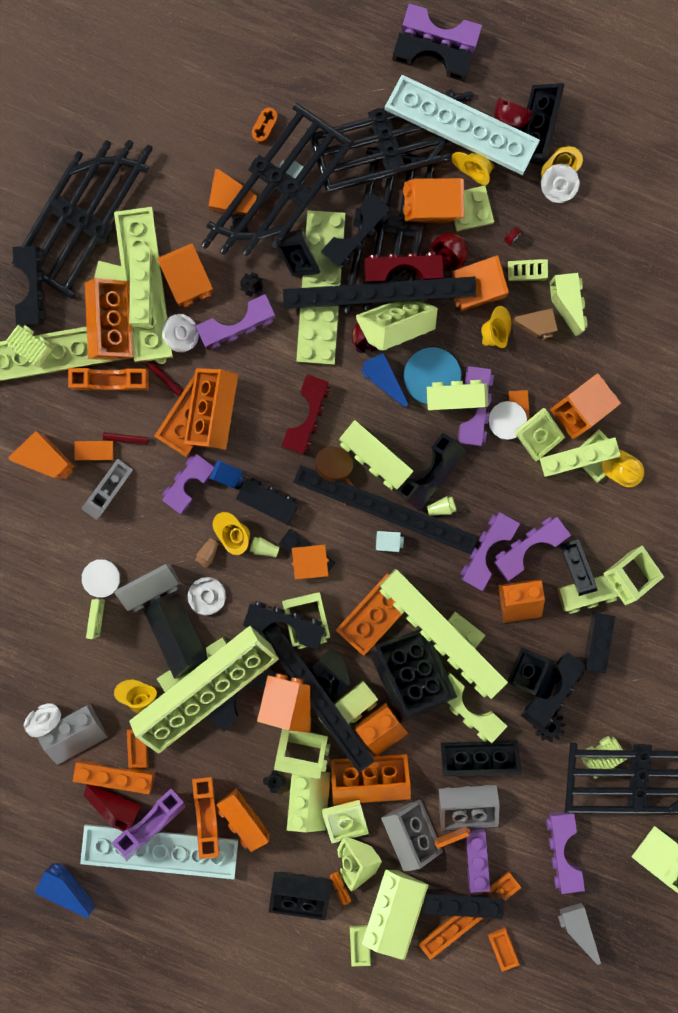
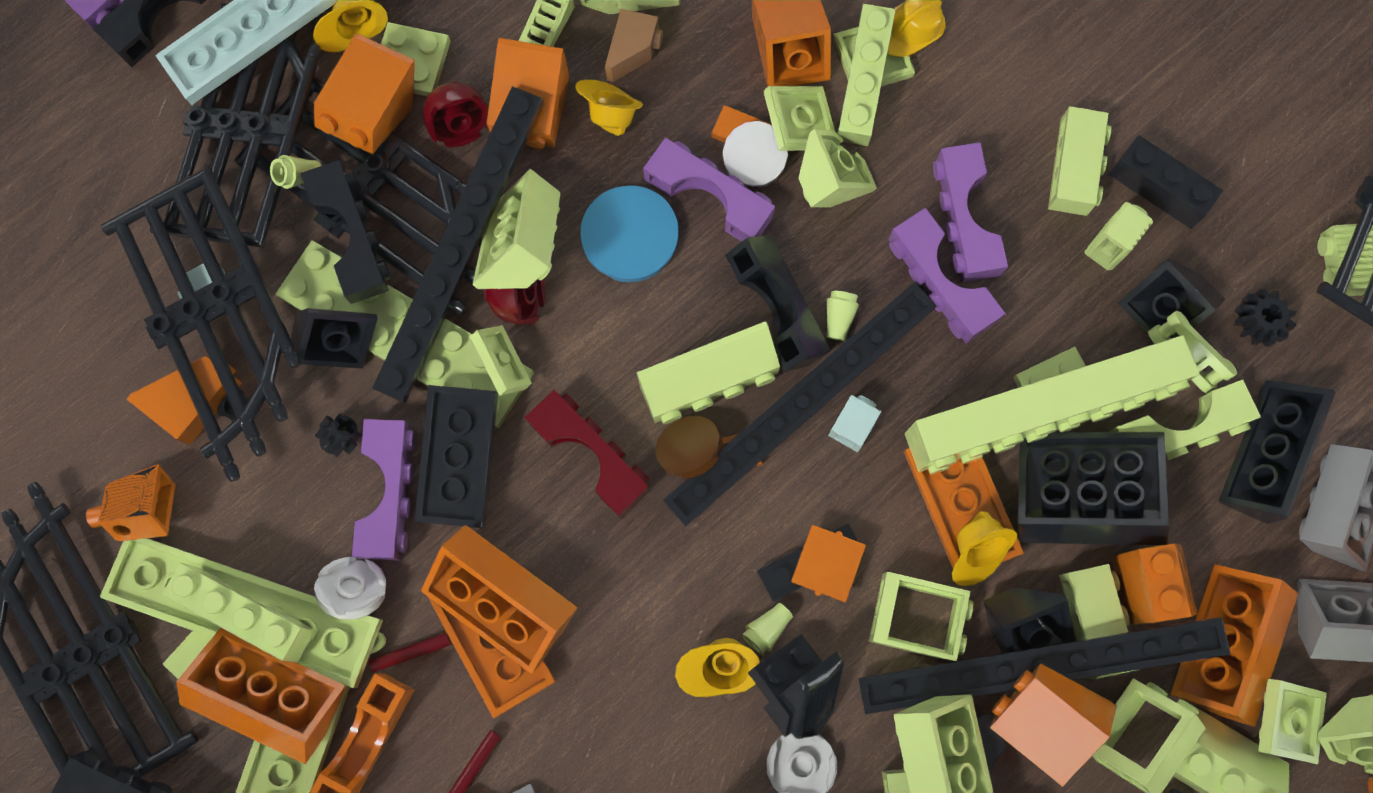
camera: 55 degrees left, 10 degrees down
(166, 204) = (136, 506): none -> orange torso
(176, 495) = (610, 730): medium lavender arch -> none
(186, 275) = (263, 530): orange slope -> none
(207, 553) = (731, 728): medium nougat cone -> none
(227, 475) = (619, 626): blue slope -> none
(242, 576) = (799, 687): none -> black piece
(267, 500) = (694, 583): black brick -> none
(268, 128) = (106, 299): orange beam -> none
(270, 350) = (456, 456): none -> black plate
(308, 632) = (885, 688): black arch -> none
(329, 346) = (500, 360): none -> yellowish green plate
(353, 633) = (981, 549): none -> yellow piece
(372, 184) = (287, 169): none -> yellowish green cone
(382, 377) = (594, 305): blue slope -> none
(426, 267) = (455, 158): dark red arch -> none
(457, 395) = (680, 201): yellowish green brick -> none
(510, 695) = (1200, 349): none -> yellowish green plate
(513, 235) = (483, 17): dark red tile -> none
(518, 466) = (831, 173): none -> yellowish green slope
(521, 600) = (1045, 260): orange slope -> none
(554, 630) = (1119, 236): none -> yellowish green brick
(567, 672) = (1246, 310): black arch -> none
(578, 567) = (1037, 153): black plate -> none
(617, 576) = (1074, 100): yellowish green window -> none

